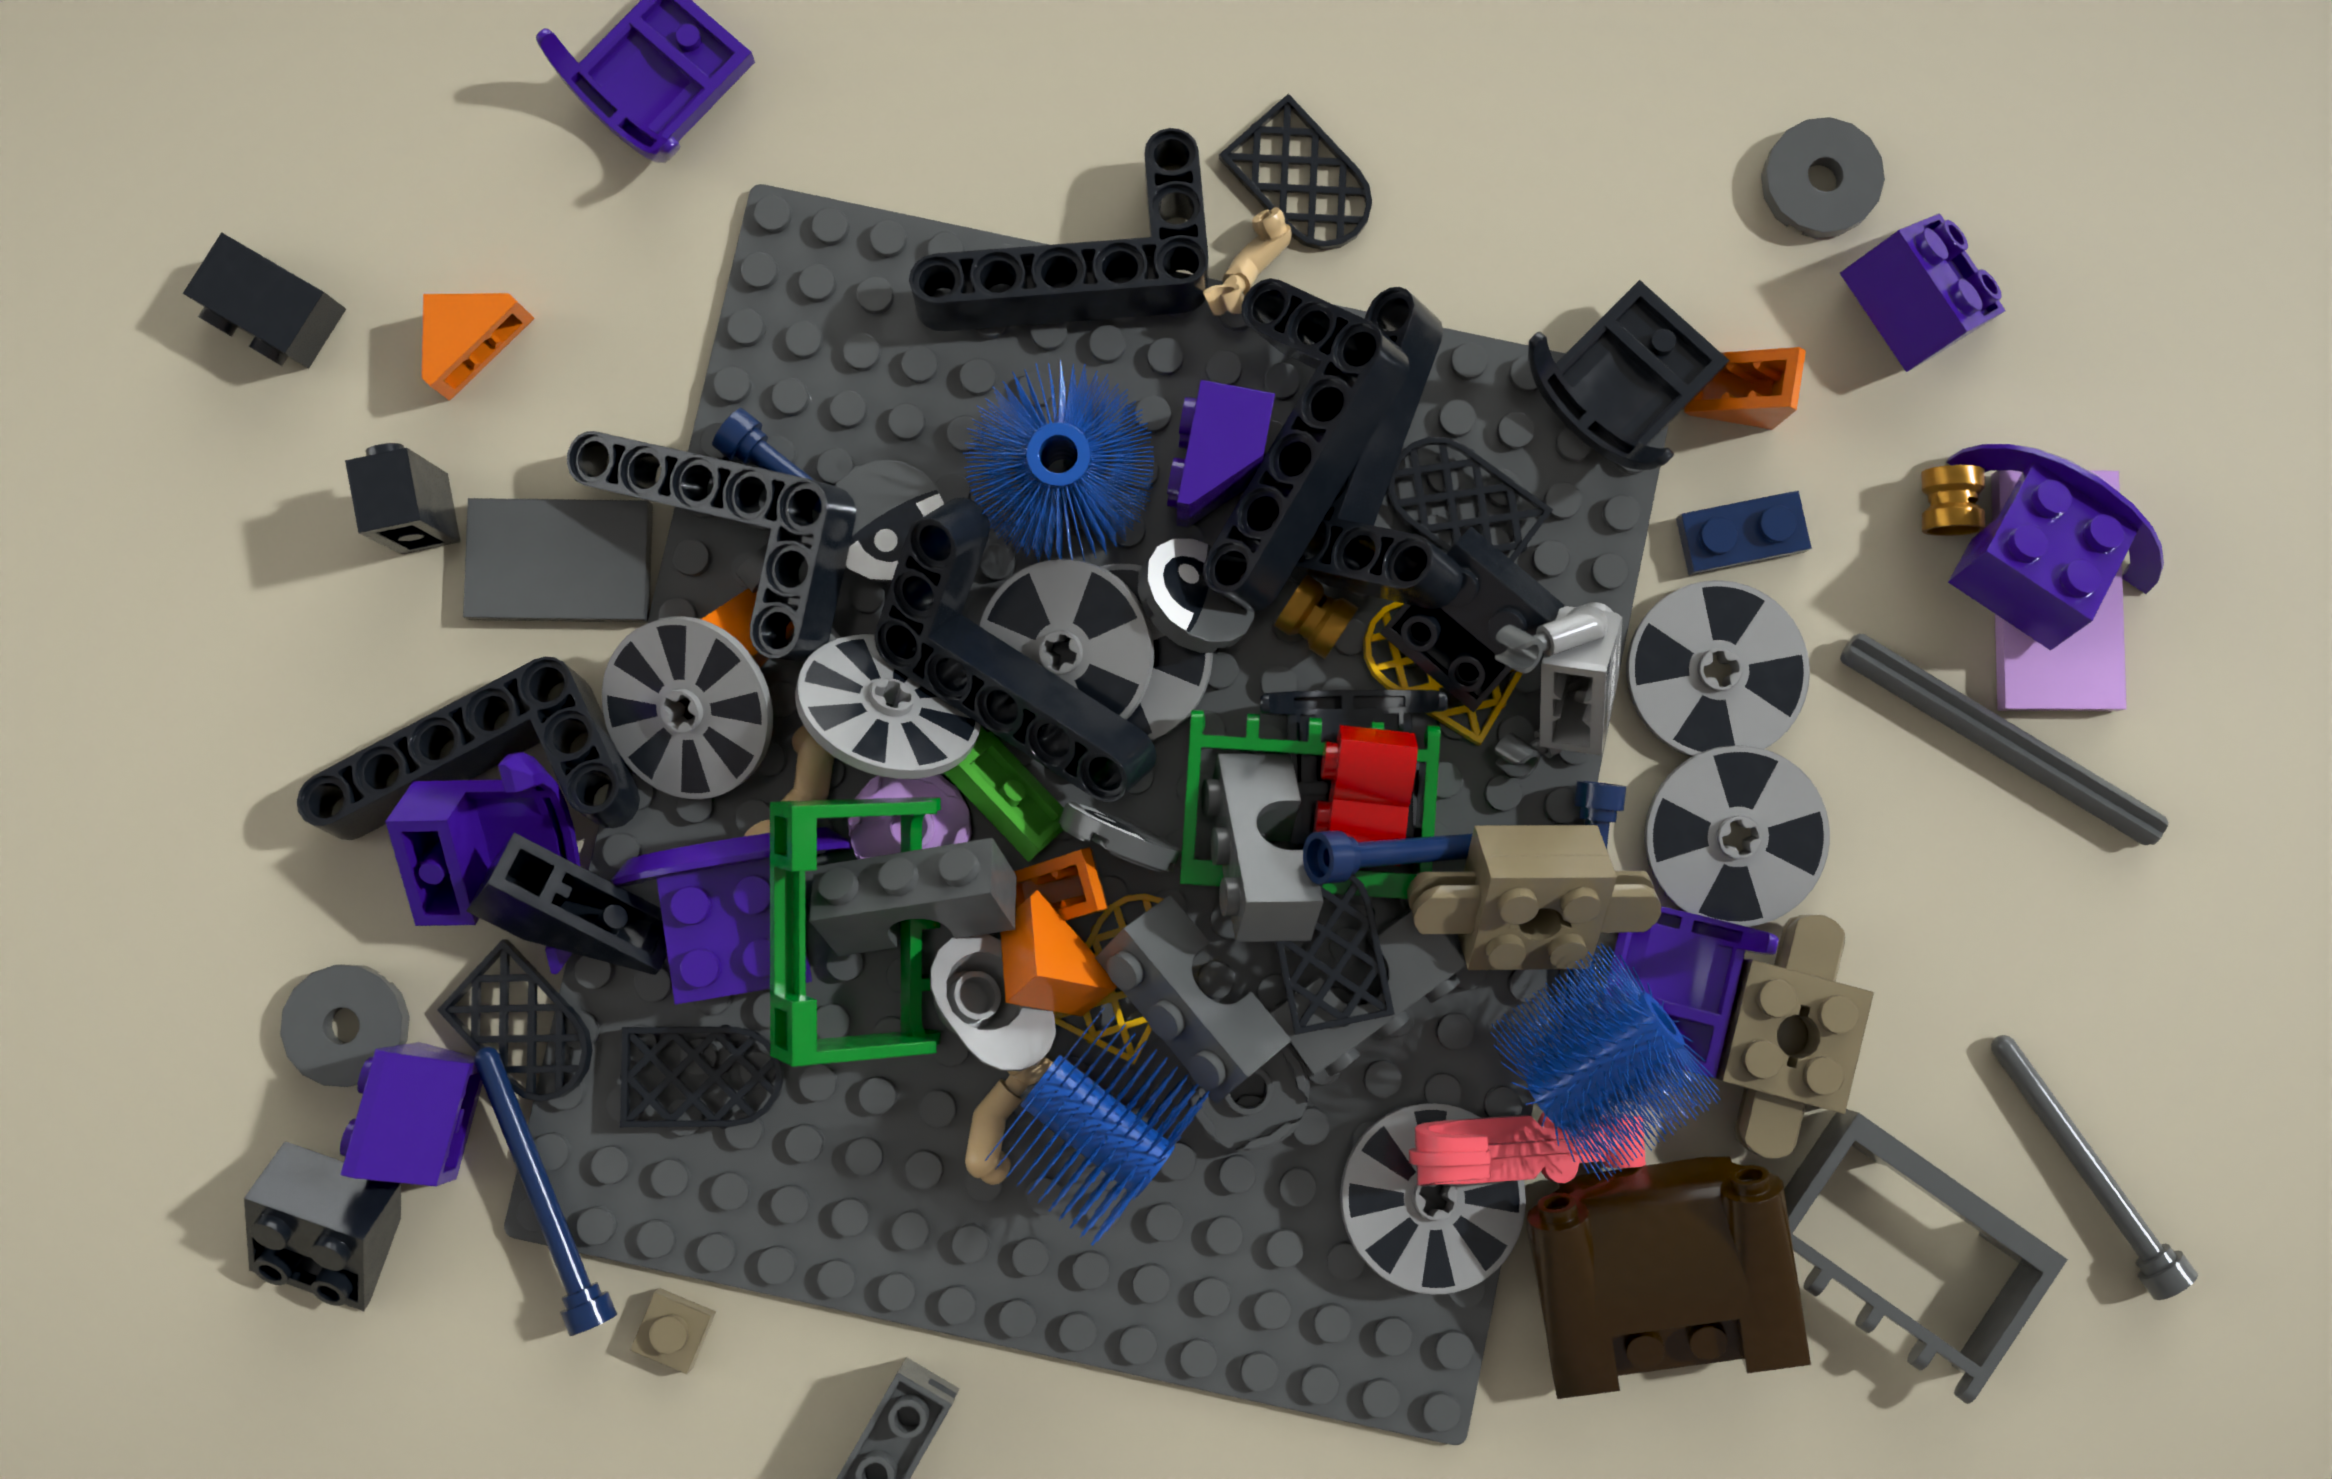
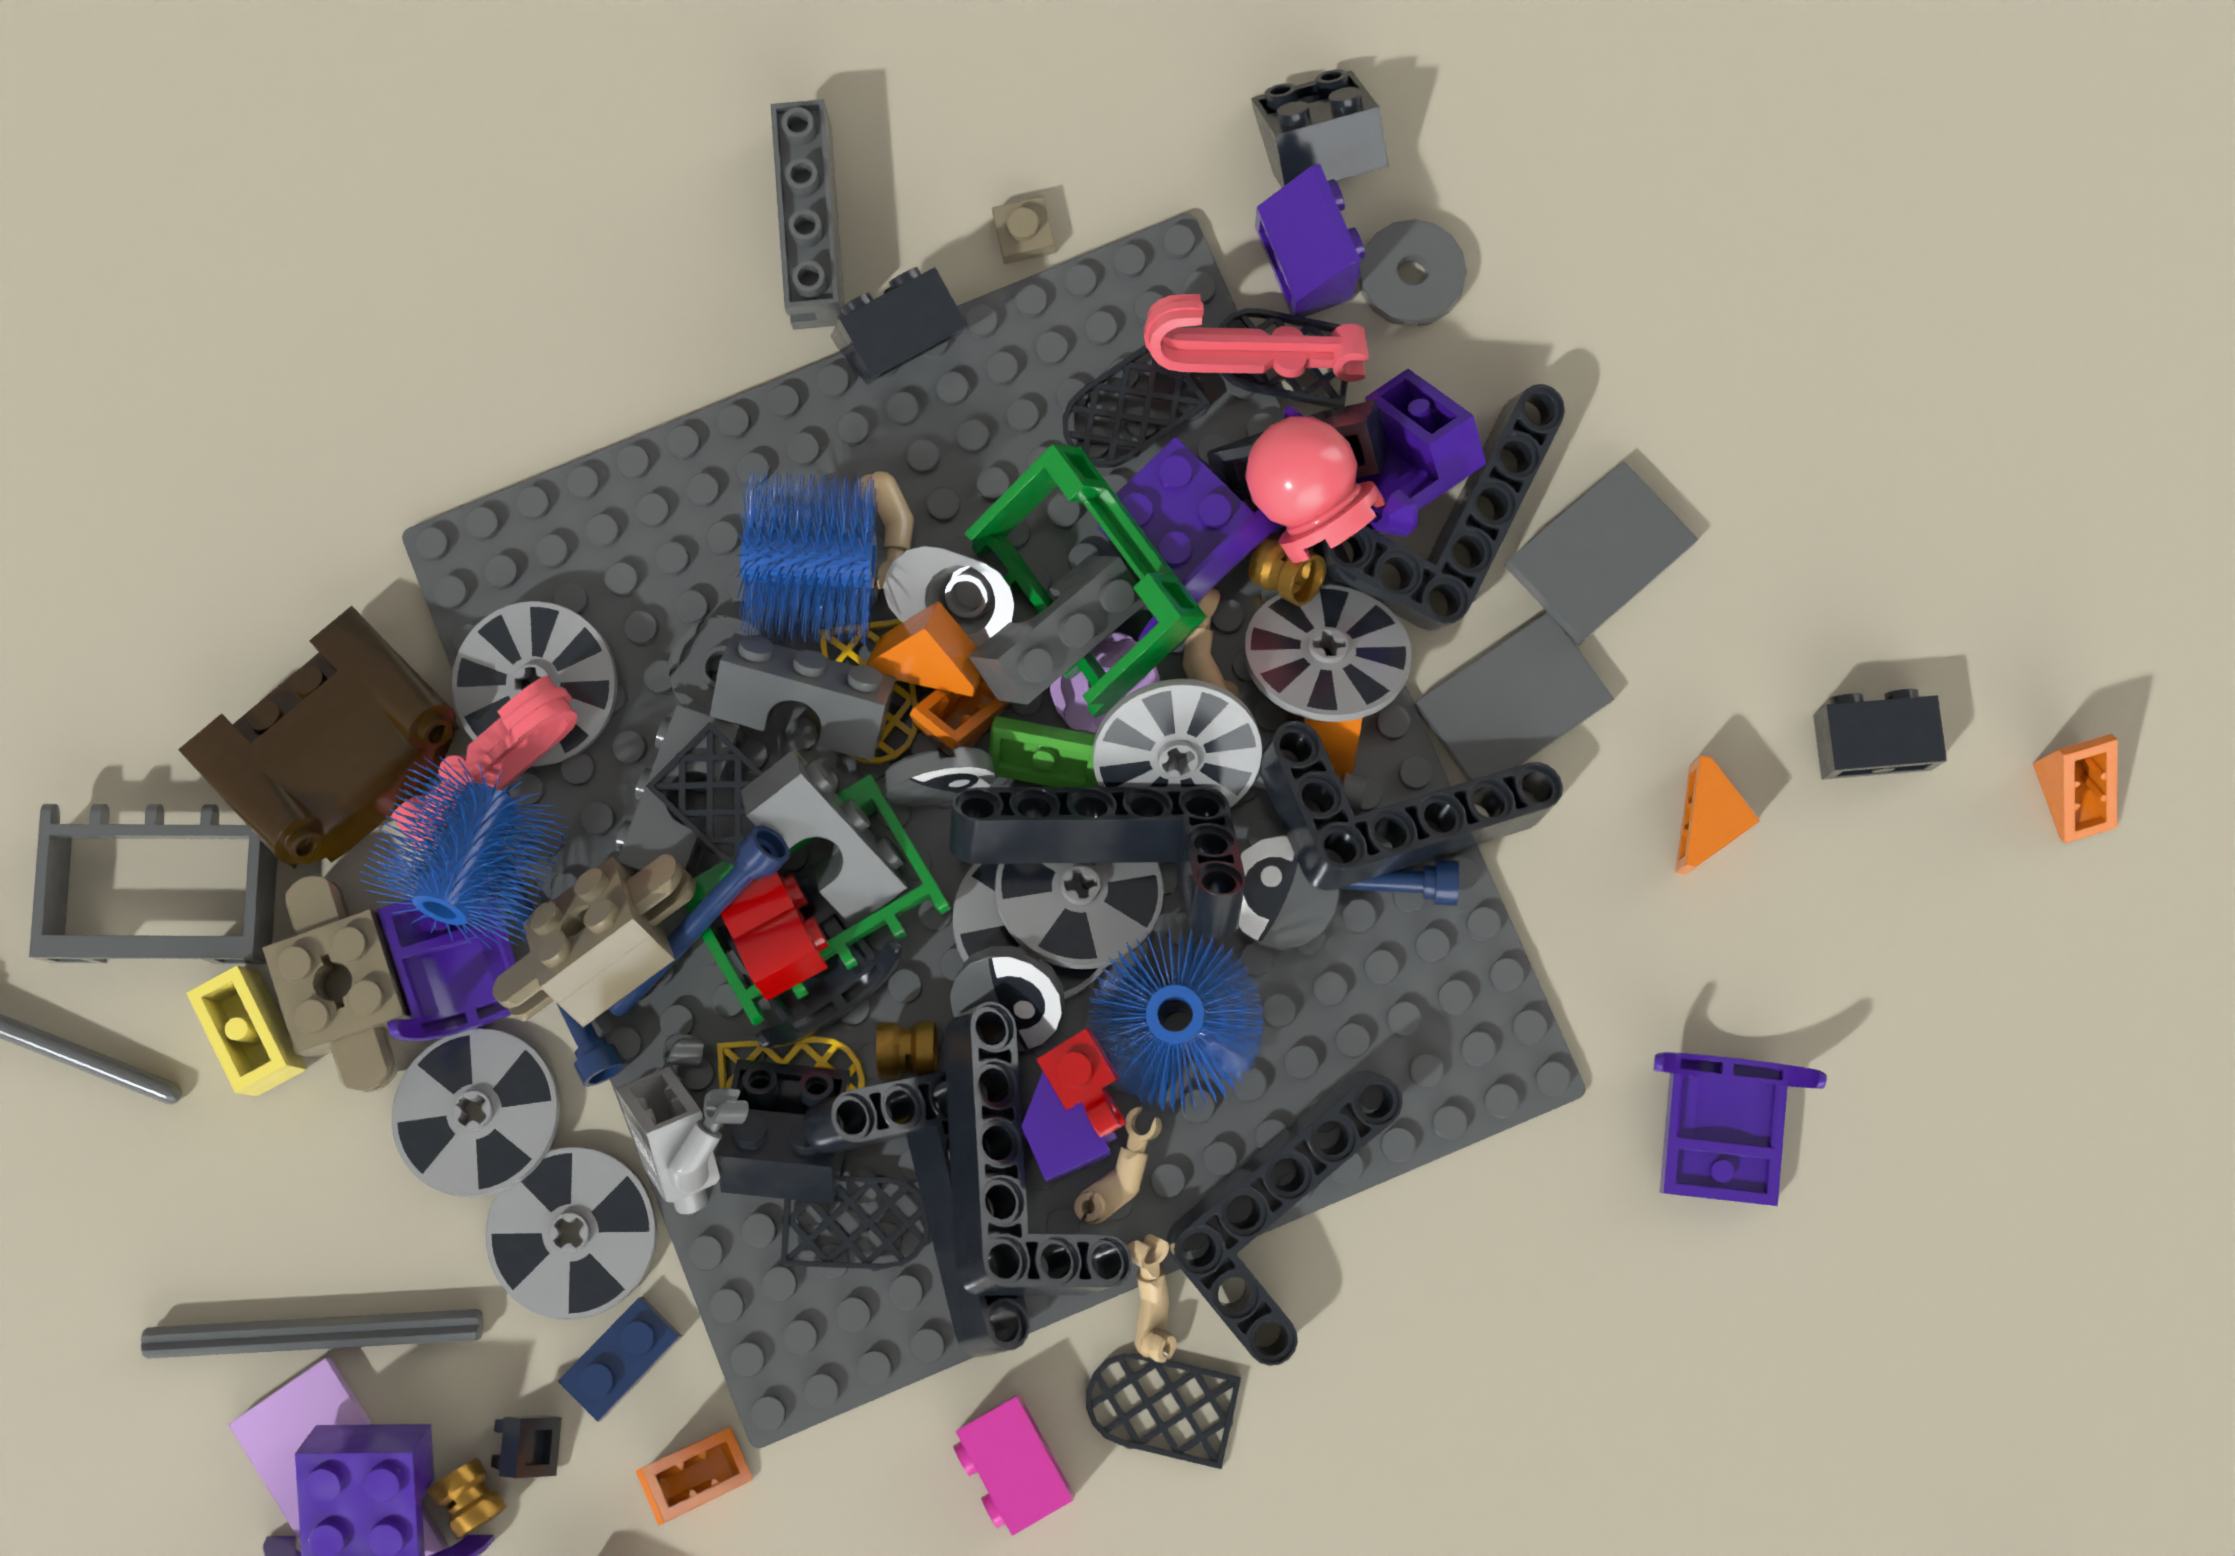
camera: 150 degrees right, 5 degrees down
(127, 141) = (2081, 787): none -> orange slope
(376, 636) = (1601, 552): none -> dark grey tile
(402, 499) = (1654, 658): black brick -> none
(584, 1301) = (1096, 204): dark blue piece -> none
(585, 856) = (1306, 480): none -> coral tile
(599, 1093) = (1247, 348): none -> coral piece
(667, 810) = (1294, 581): none -> pearl gold wheel
(857, 1306) = (898, 325): none -> black slope
(1179, 457) = (1080, 1075): none -> red plate
(1230, 369) = (1123, 1182): none -> tan arm
(1462, 209) = (1013, 1465): none -> dark pink brick
(1627, 377) = (787, 1412): black piece -> none
(1872, 510) = (528, 1446): none -> black tile
(1905, 1050) = (246, 1031): none -> light yellow brick

